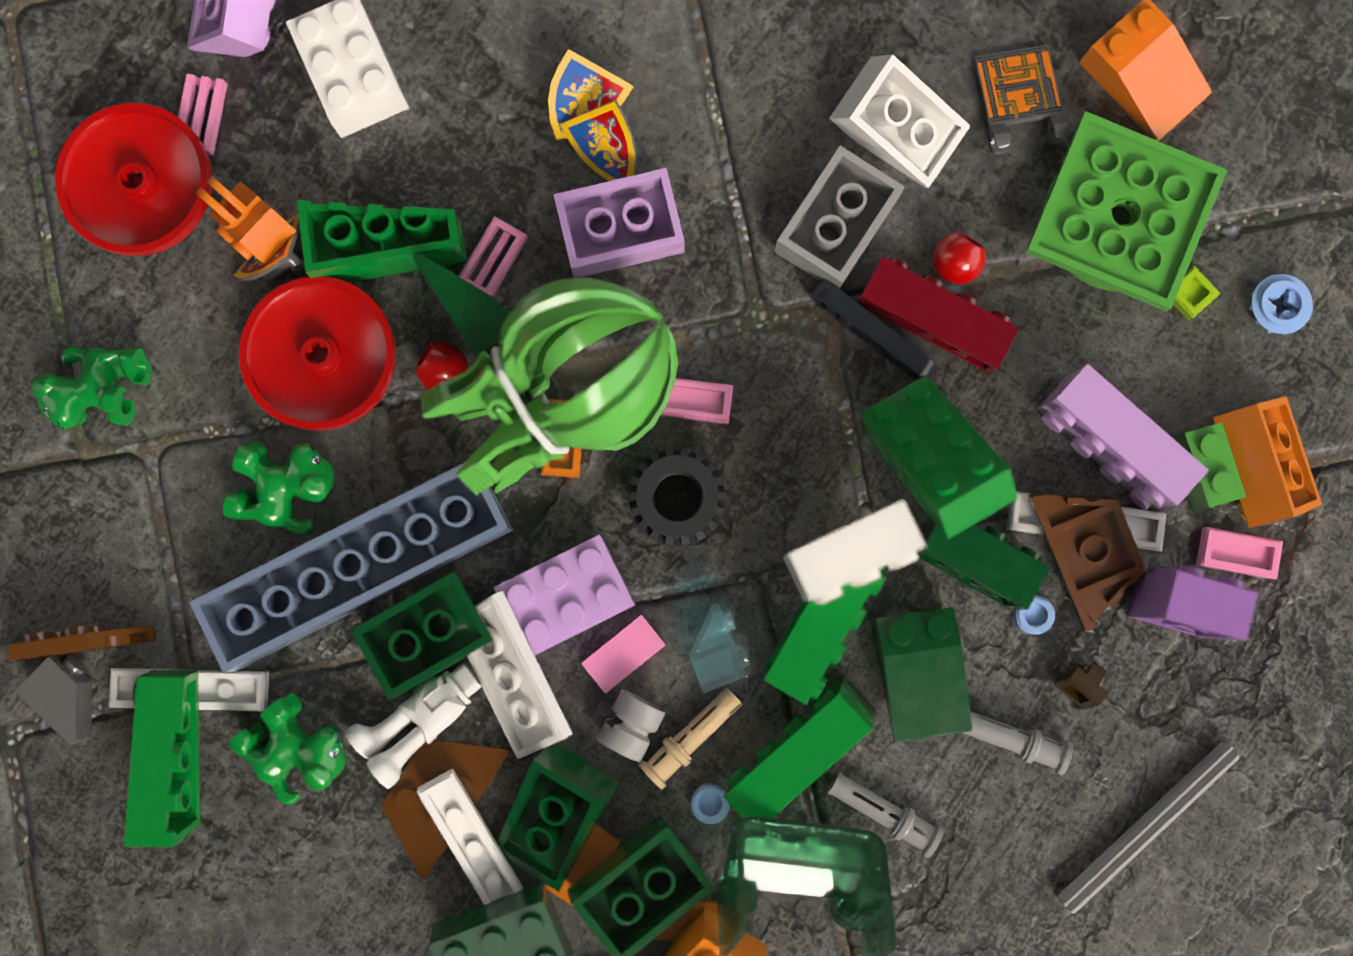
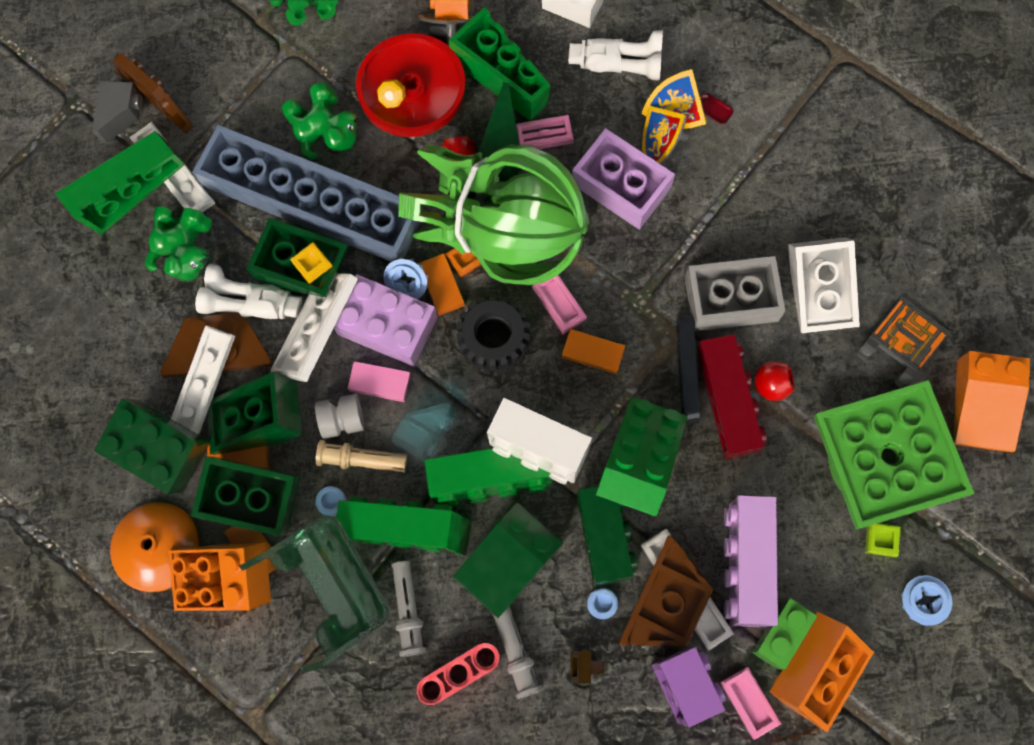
camera: 55 degrees right, 10 degrees down
(313, 383) = (391, 93): none -> yellow tile
(443, 626) = (311, 262): none -> yellow tile
(458, 120) = (605, 55): none -> white piece
(539, 550) = (396, 270): none -> light blue gear
(571, 504) = (442, 285): none -> orange tile
(619, 59) = (716, 109): none -> dark red piece
(774, 409) = (593, 351): none -> orange tile
(1000, 829) = (443, 675): none -> coral beam

